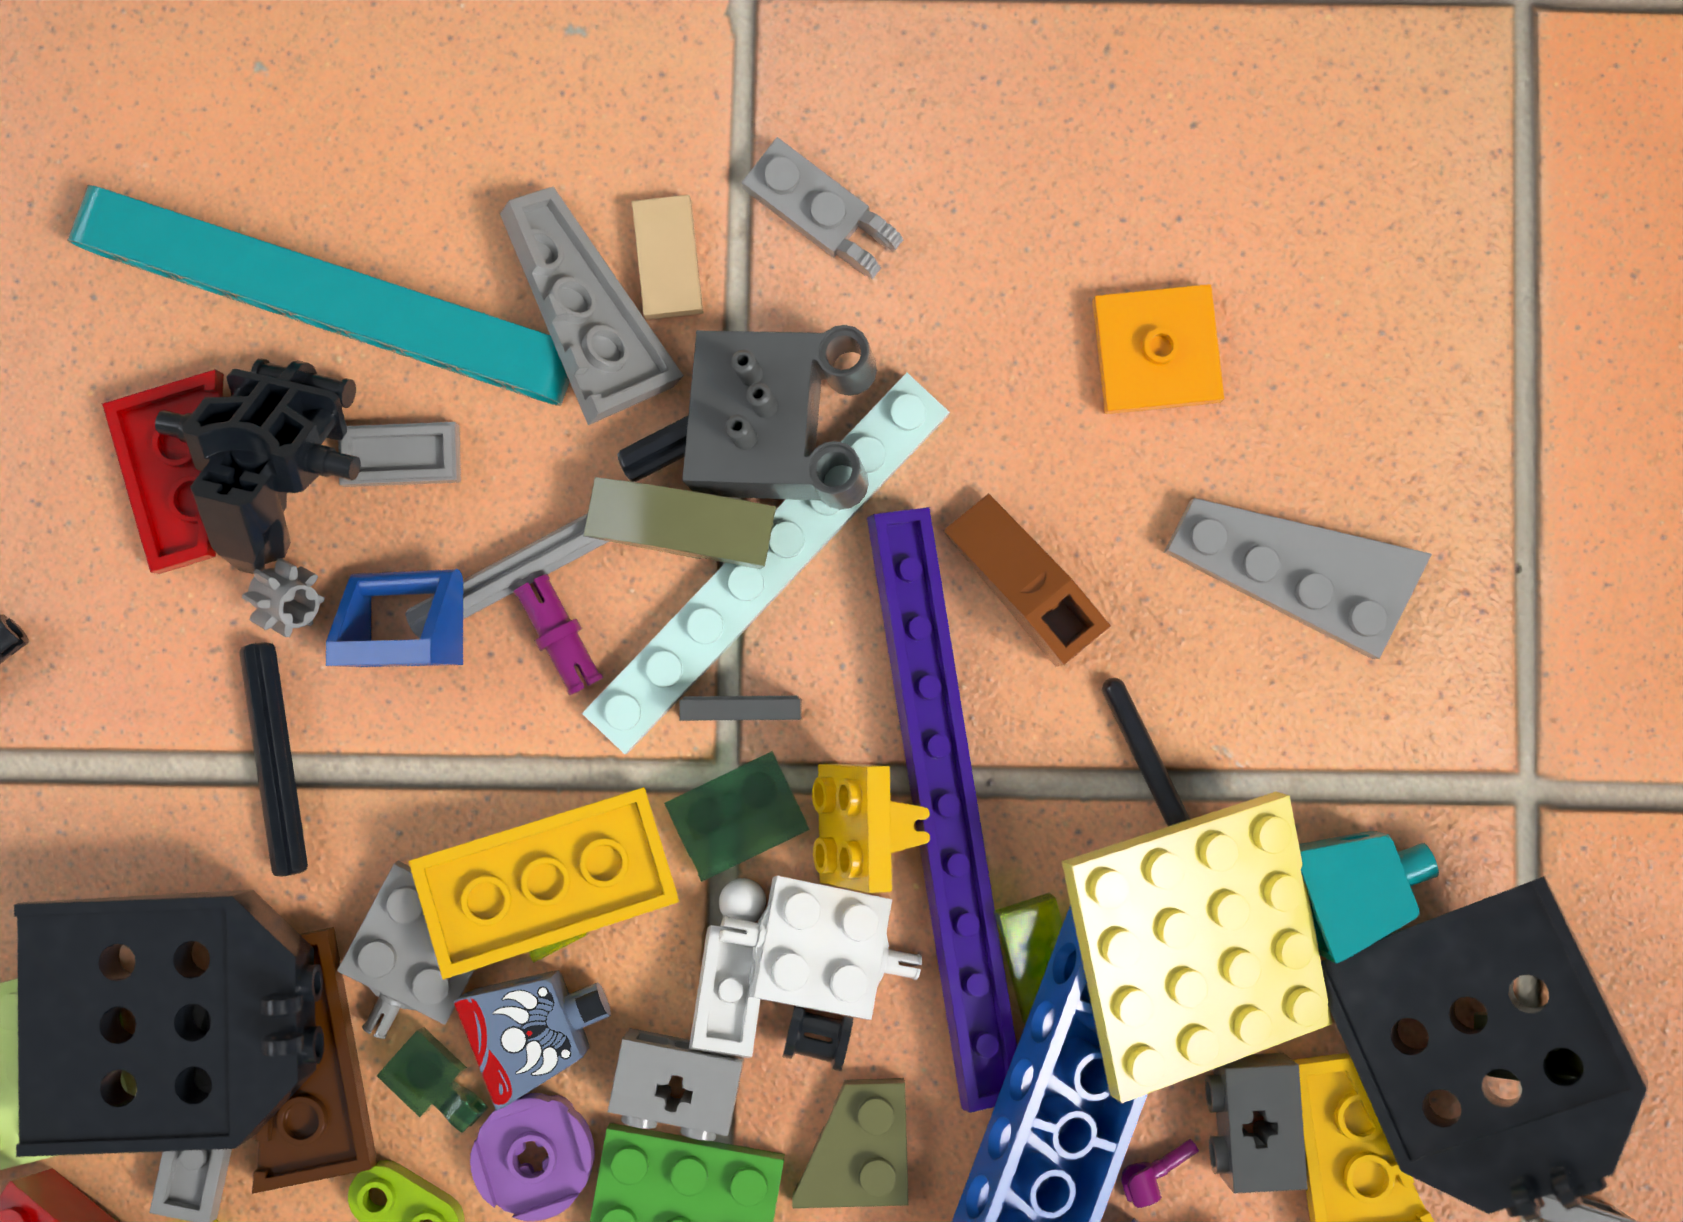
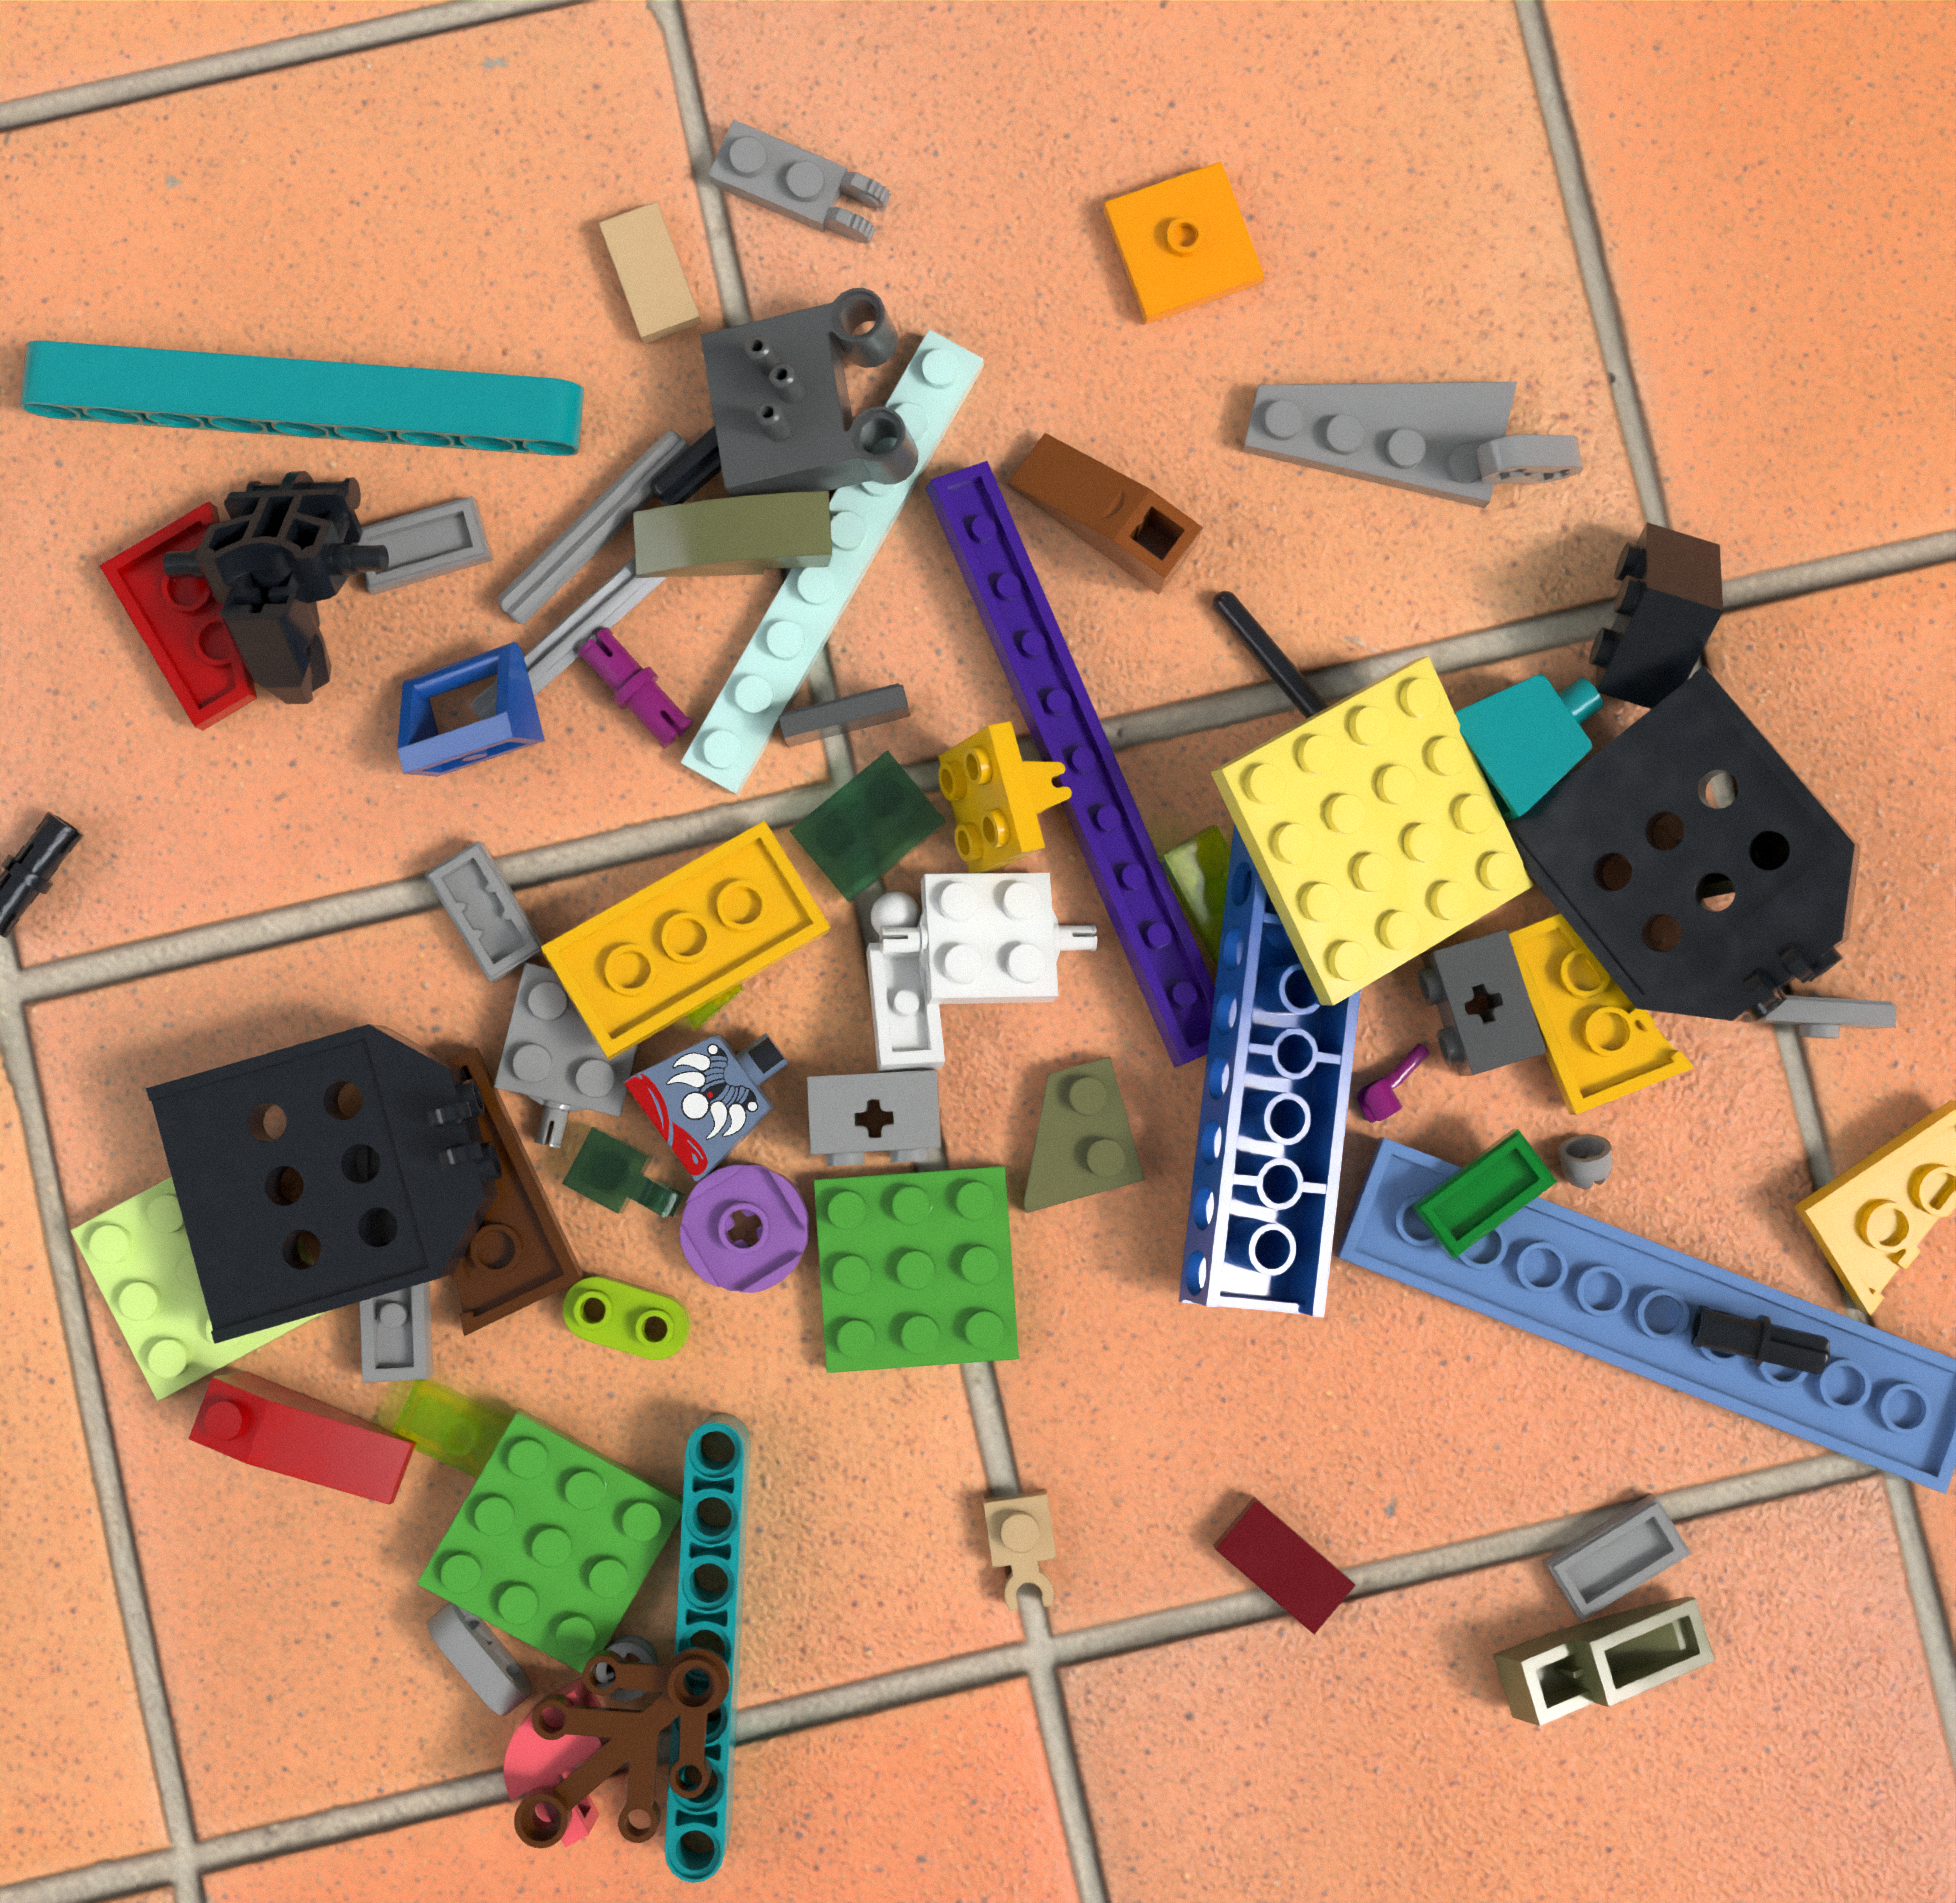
camera: 15 degrees left, 0 degrees up
(273, 759) = (371, 890): black axle -> none
(283, 597) = (340, 718): light grey gear -> none
(371, 805) = (486, 911): none -> light grey plate
(554, 479) = (589, 531): none -> light grey axle
(590, 317) = (587, 352): light grey wing -> none
(827, 1051) = (1008, 1031): black bush -> none
(1426, 631) = (1529, 459): none -> light grey beam
(1516, 810) = (1664, 616): none -> black brick

